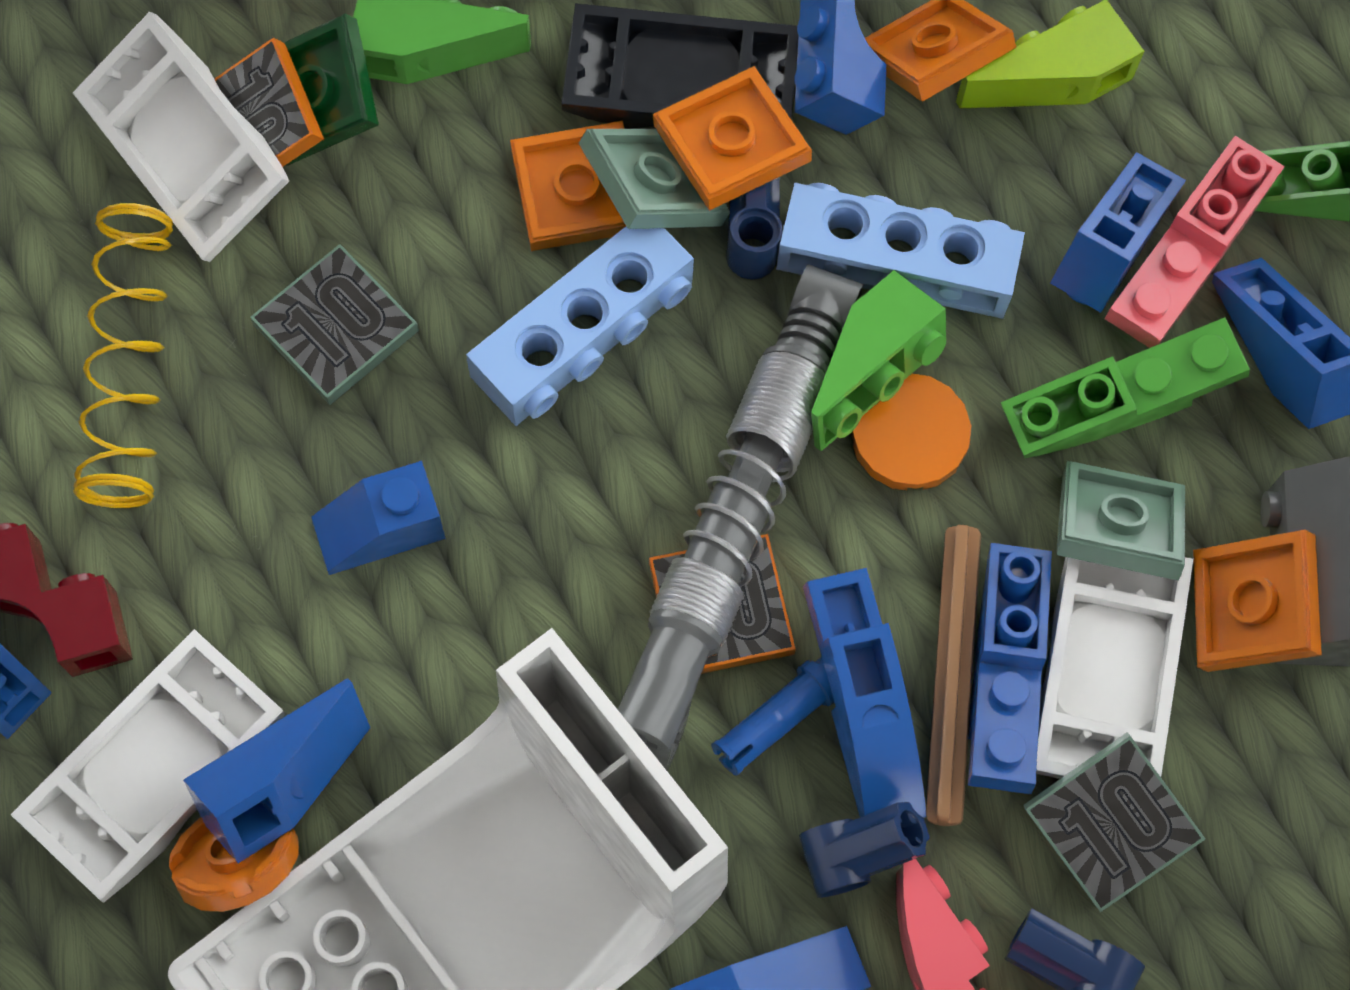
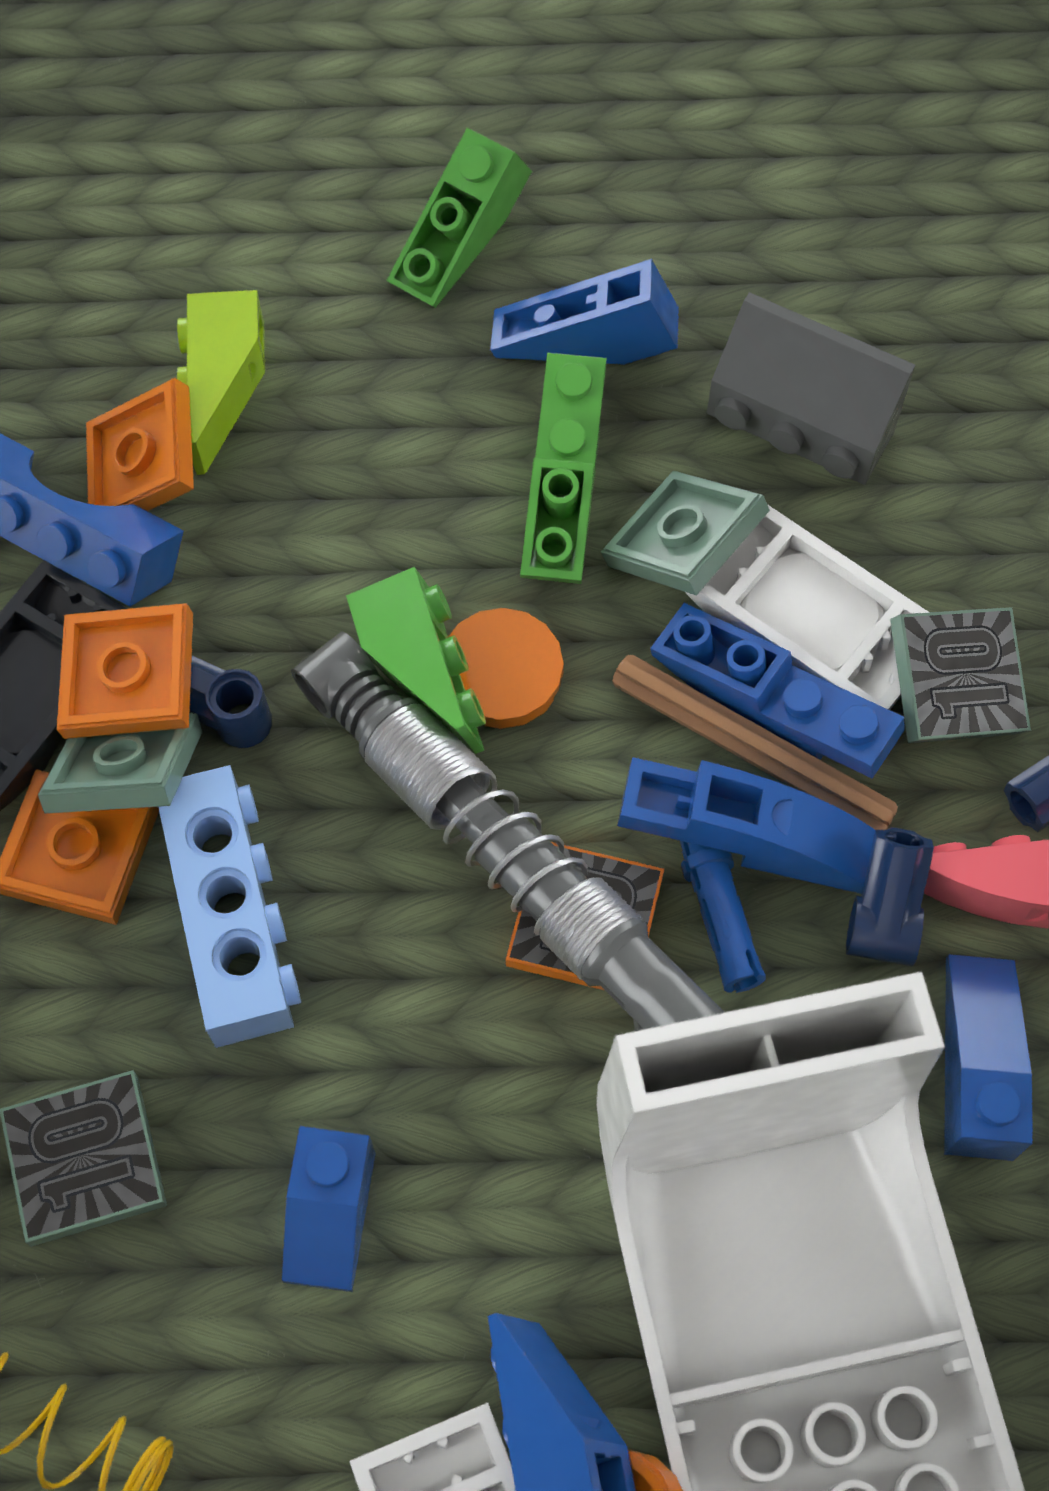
camera: 60 degrees left, 5 degrees down
(976, 287) = (370, 511): light blue brick -> none
(1116, 232) = (412, 403): blue slope -> none
(1194, 243) = (456, 349): coral slope -> none
(1257, 601) = (817, 461): orange tile -> none

